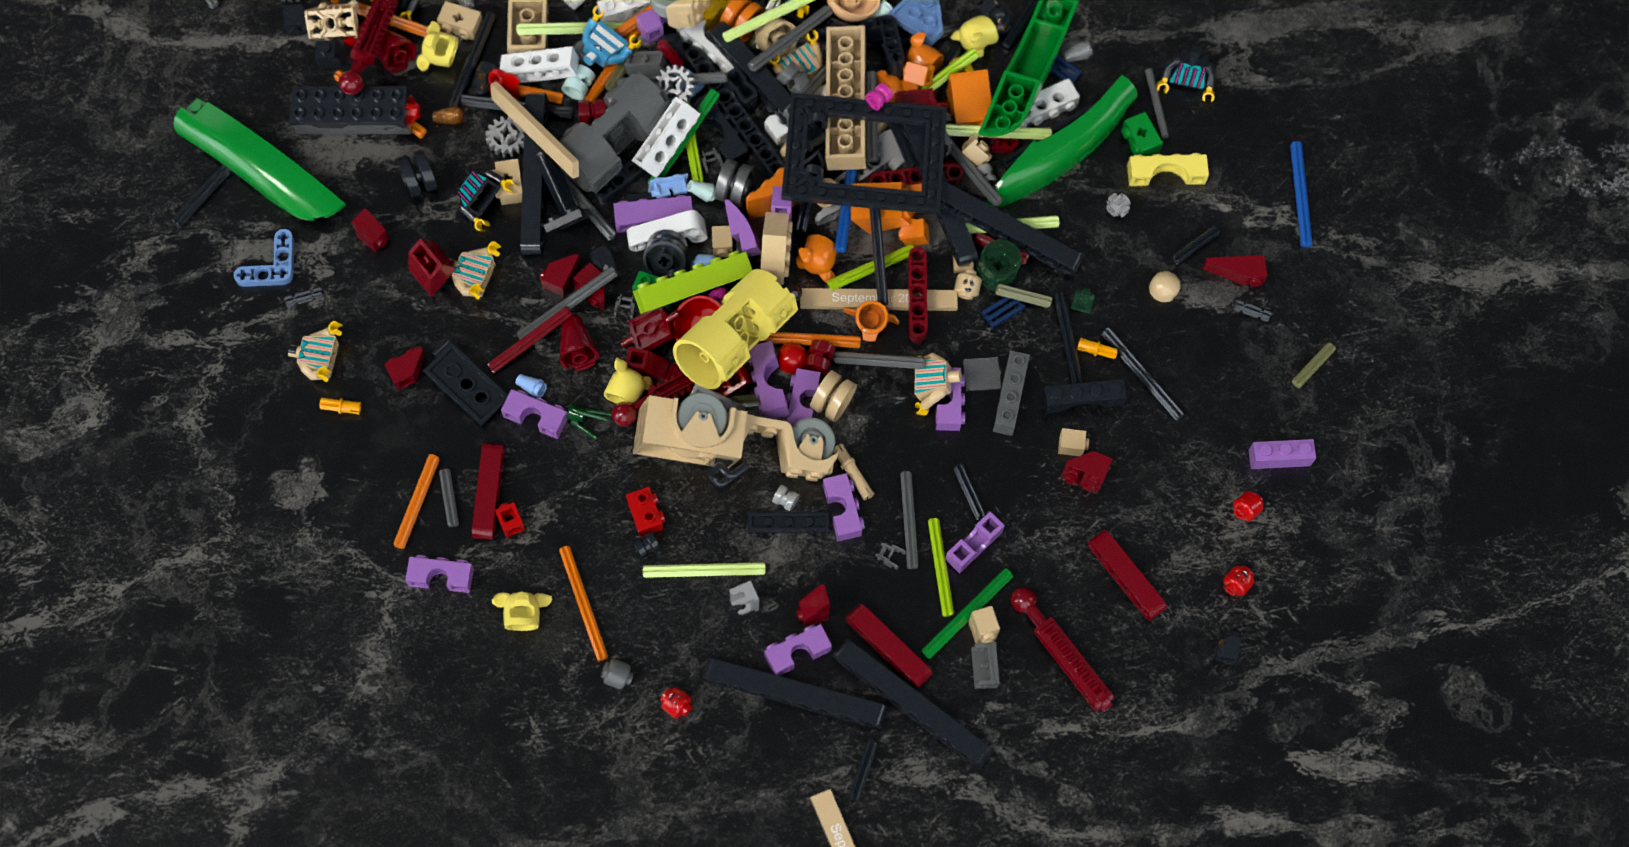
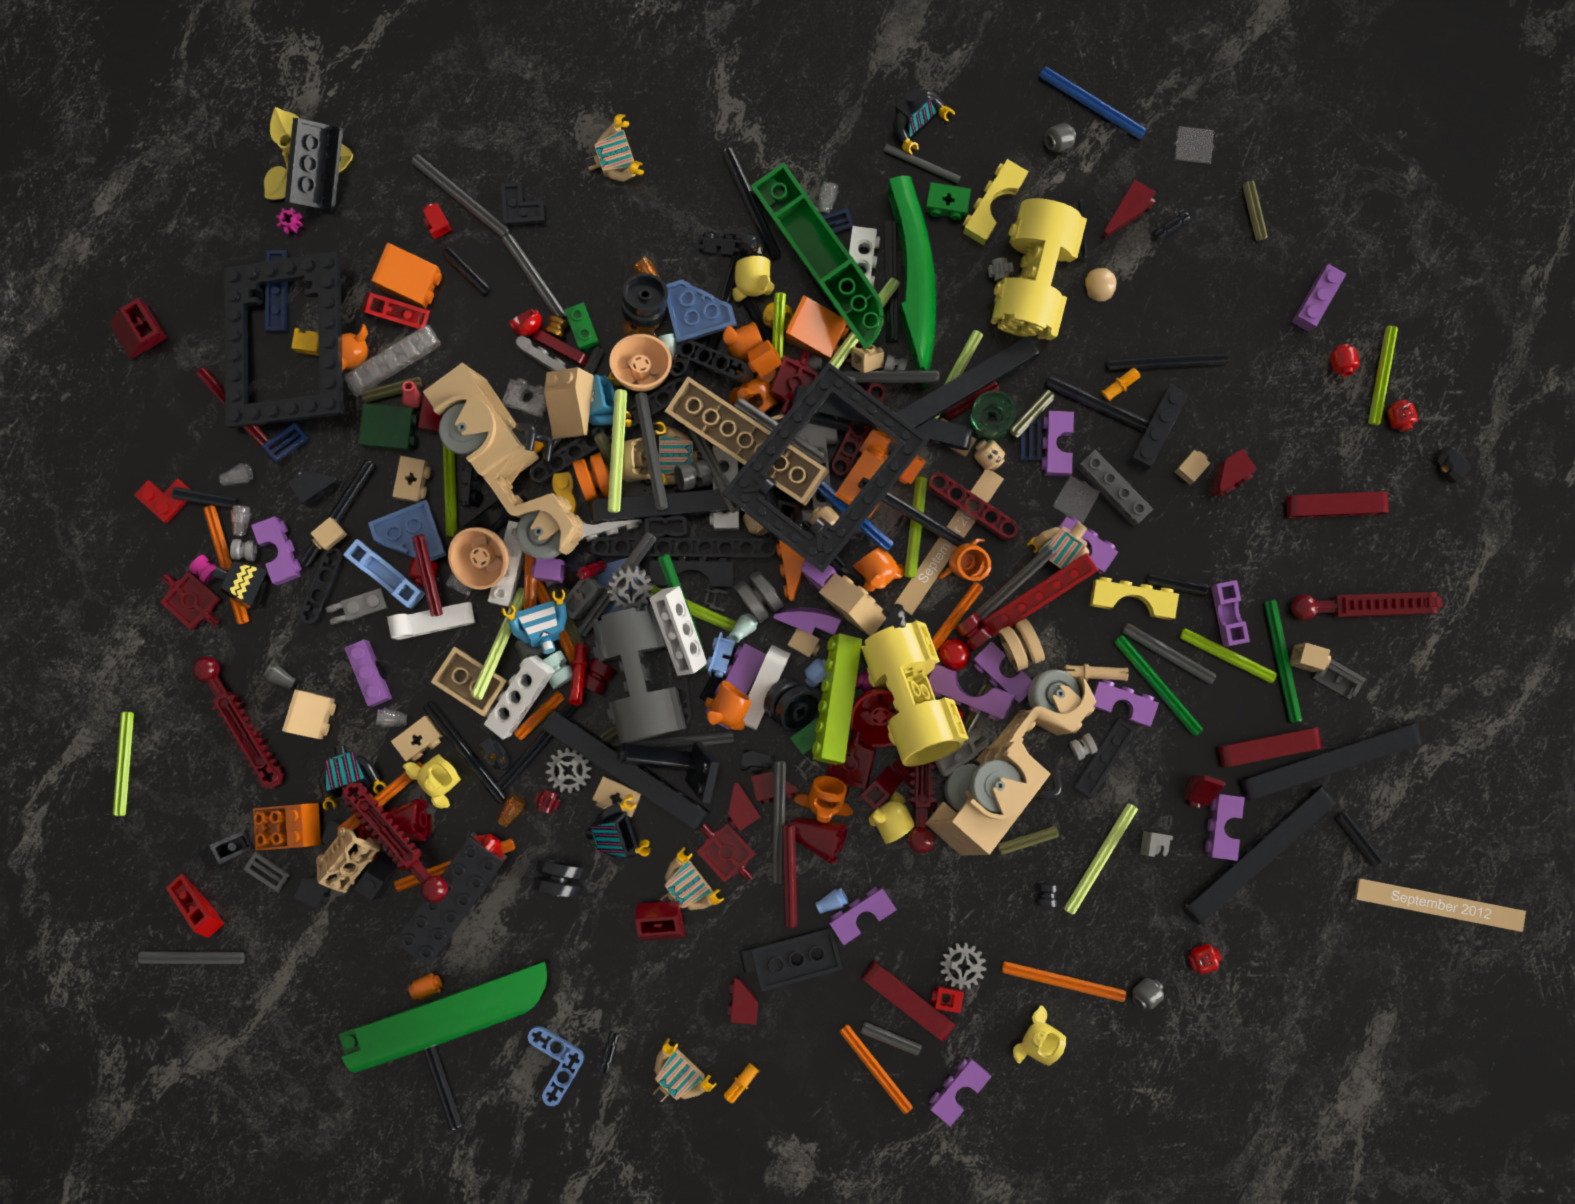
camera: 55 degrees left, 15 degrees up
(272, 136) = (425, 987): none -> orange brick
(370, 230) = (587, 954): dark red slope -> none
(472, 135) = (547, 801): none -> dark red gear
(506, 80) = (513, 743): red plate -> none
(517, 285) = (726, 852): none -> dark red plate
(535, 130) = (593, 747): tan tile -> none
(537, 518) = (972, 967): none -> light grey gear
(579, 413) = (887, 877): dark green plant -> none
(591, 92) = (579, 666): none -> red pin
(609, 328) = (825, 798): none -> orange piece
(631, 208) = (728, 707): none -> orange piece
(644, 511) = (1017, 876): red brick -> none
(681, 504) = (1028, 840): none -> olive axle
(877, 528) = (1158, 685): none -> green axle
(880, 95) = (782, 417): dark pink wheel -> none
(888, 385) = (1041, 594): none -> red tile
(893, 548) = (1186, 685): dark grey piece -> none
(922, 441) = (1159, 603): none -> light yellow arch
(1026, 320) = (1055, 461): none -> medium lavender arch
(1083, 300) = (1069, 365): clear green tile -> none
(1168, 213) = (1045, 234): none -> light yellow cylinder
(1254, 185) = (1060, 137): none -> dark grey head
(1259, 546) = (1383, 375): none -> lime axle
(1329, 289) = (1194, 145): none -> clear piece

